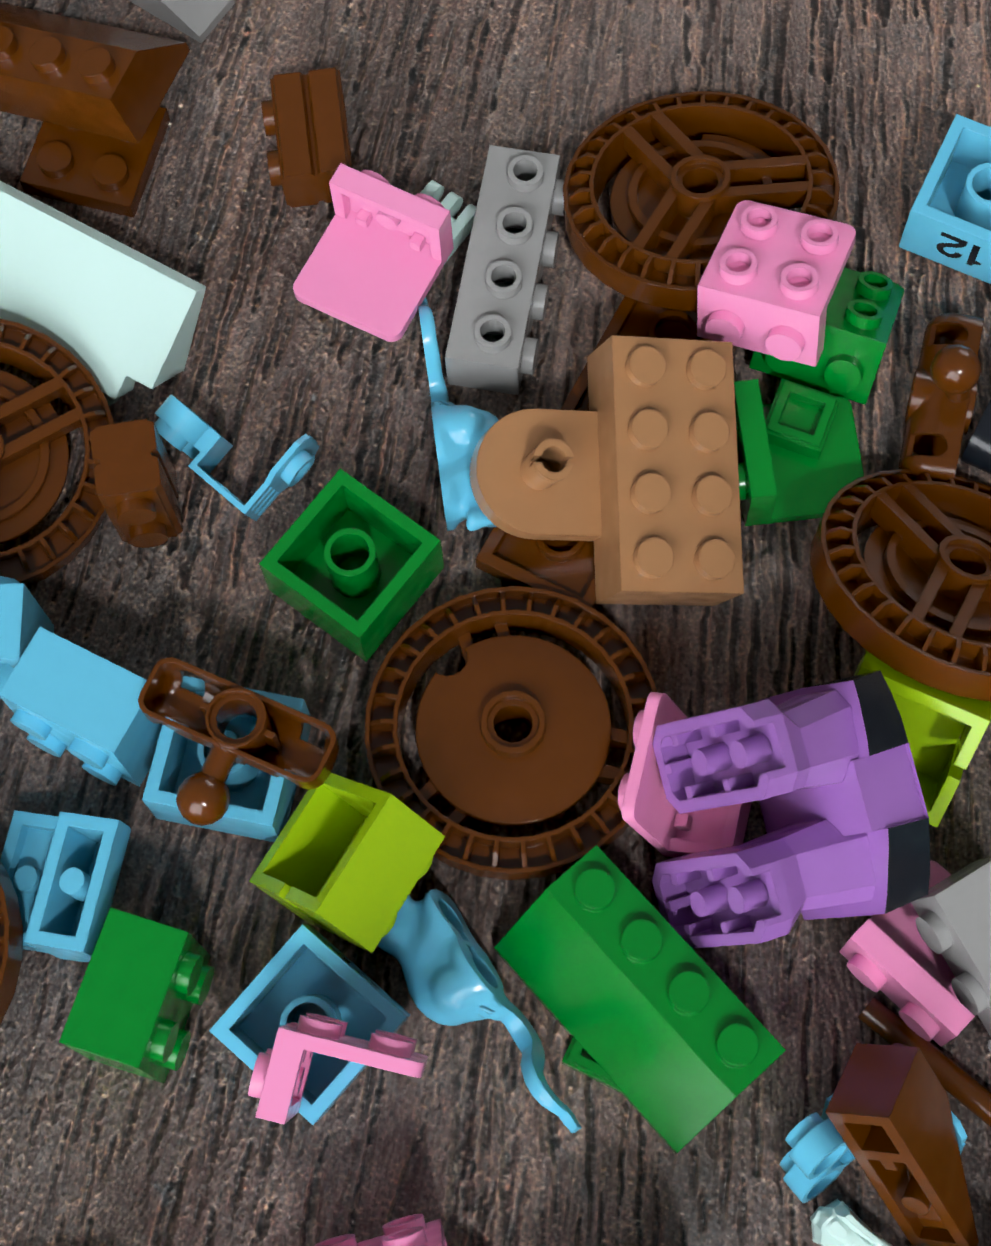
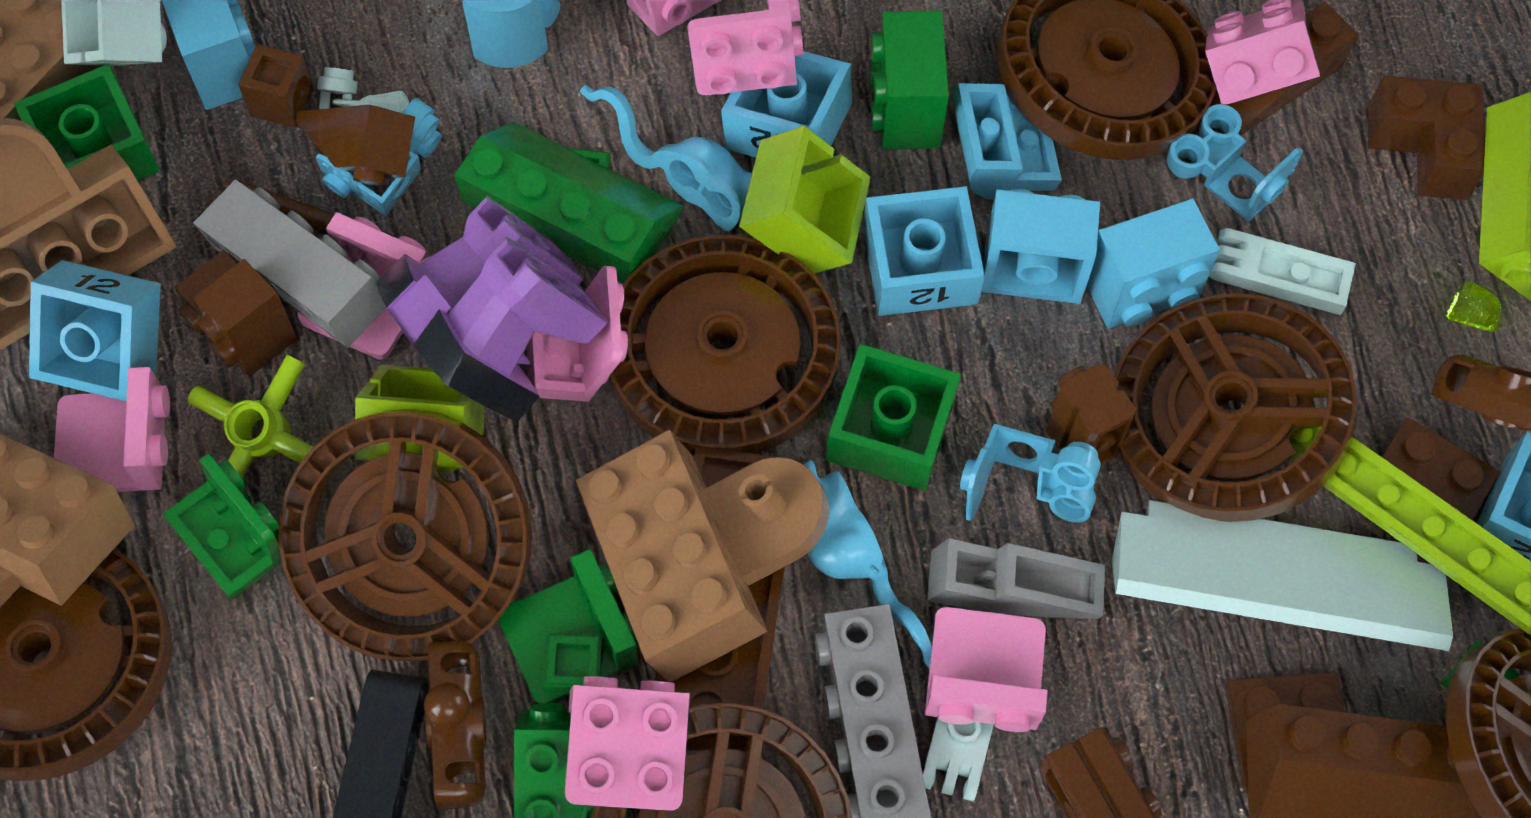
camera: 155 degrees right, 5 degrees down
(270, 746) = (935, 224): reddish brown piece -> none
(299, 364) = (1015, 581): none -> light grey slope

